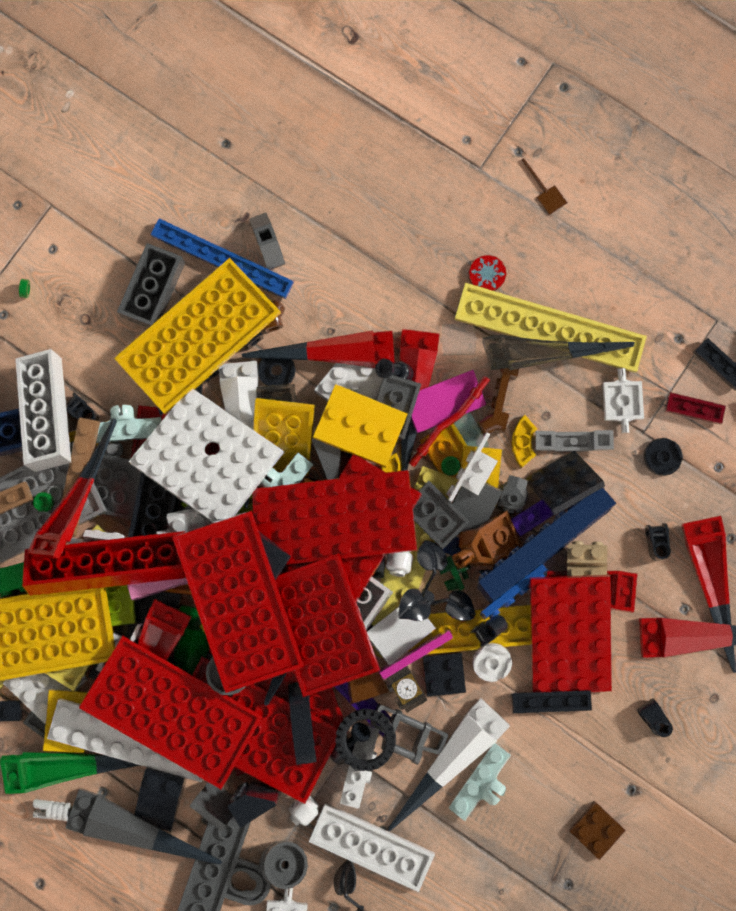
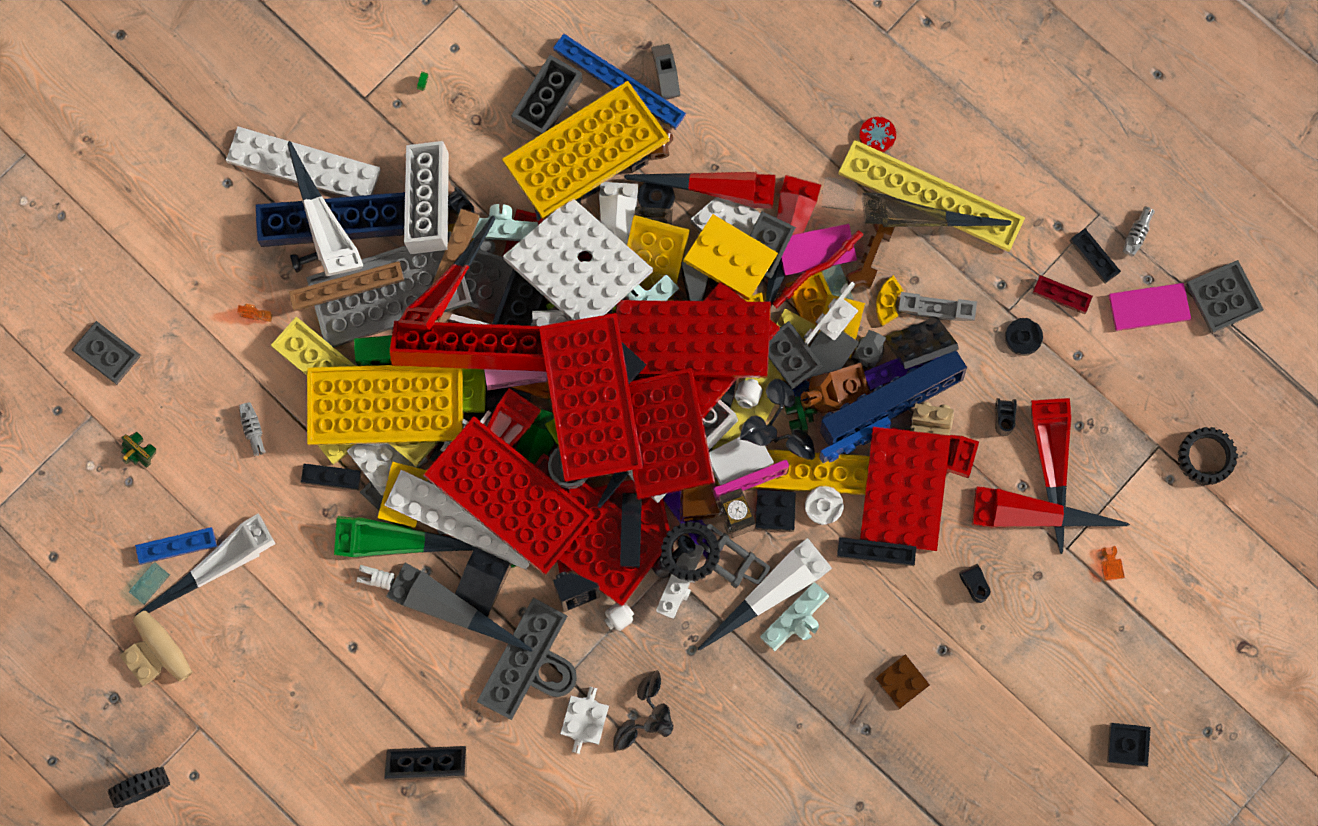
camera: 10 degrees right, 5 degrees down
(43, 502) = (413, 284): green tile -> none
(213, 805) = (537, 591): dark grey tile -> none
(295, 863) = (600, 652): dark grey wheel -> none
(372, 847) = (679, 661): white plate -> none
(385, 368) = (763, 206): black piece -> none
(450, 466) = (812, 312): green tile -> none
(489, 629) = (825, 470): black piece -> none
(551, 198) = (952, 72): reddish brown piece -> none
(623, 401) = (992, 276): white plate -> none

